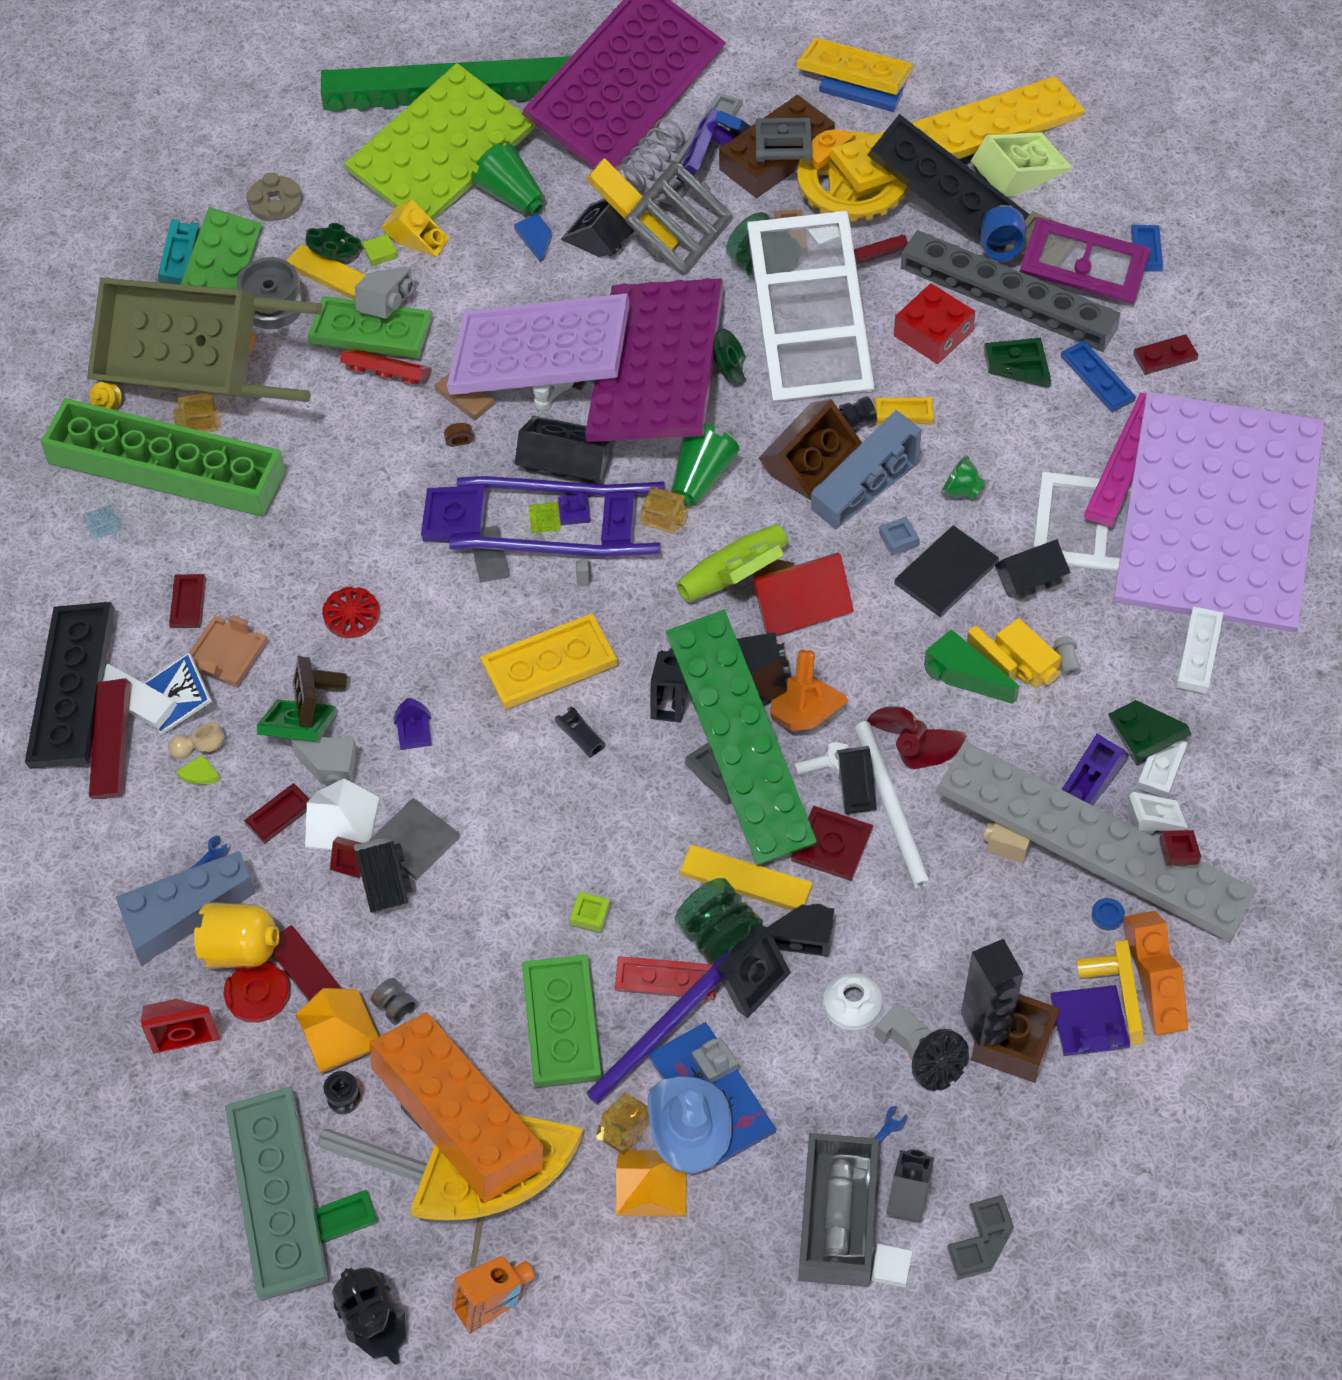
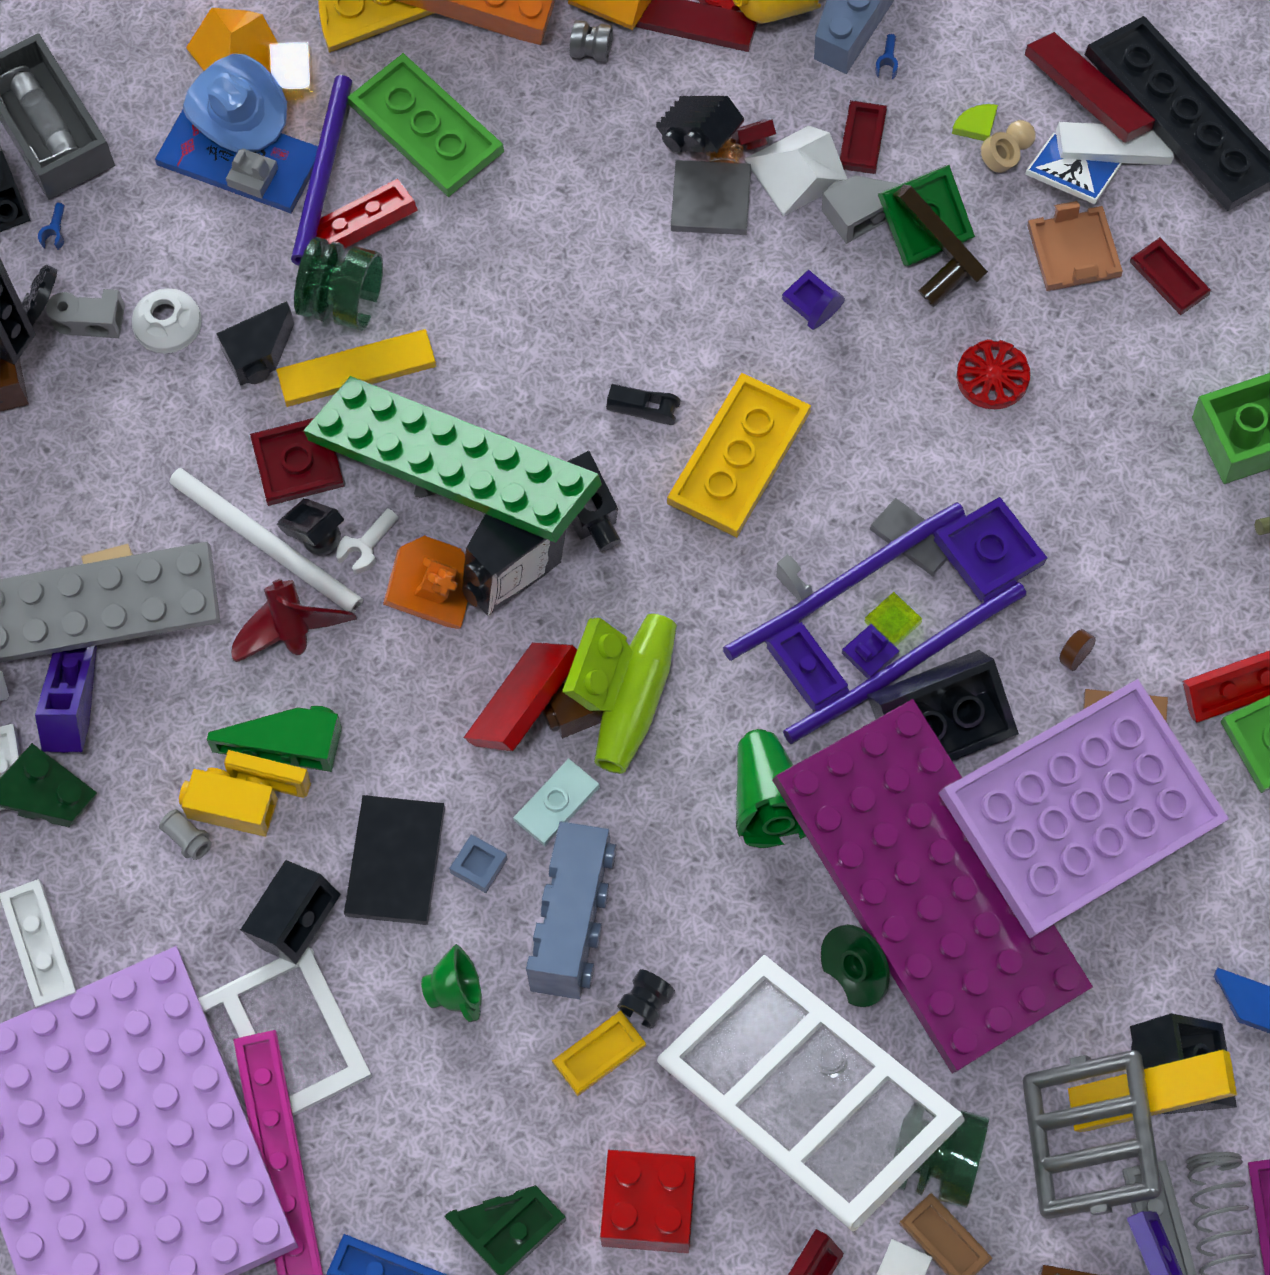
camera: 145 degrees right, 10 degrees up
(589, 912) = (480, 234): lime plate -> none
(664, 511) = (764, 706): clear yellow brick -> none
(753, 970) = (272, 262): black plate -> none
(811, 447) = (663, 907): reddish brown slope -> none
(826, 542) = (556, 802): none -> light aqua plate

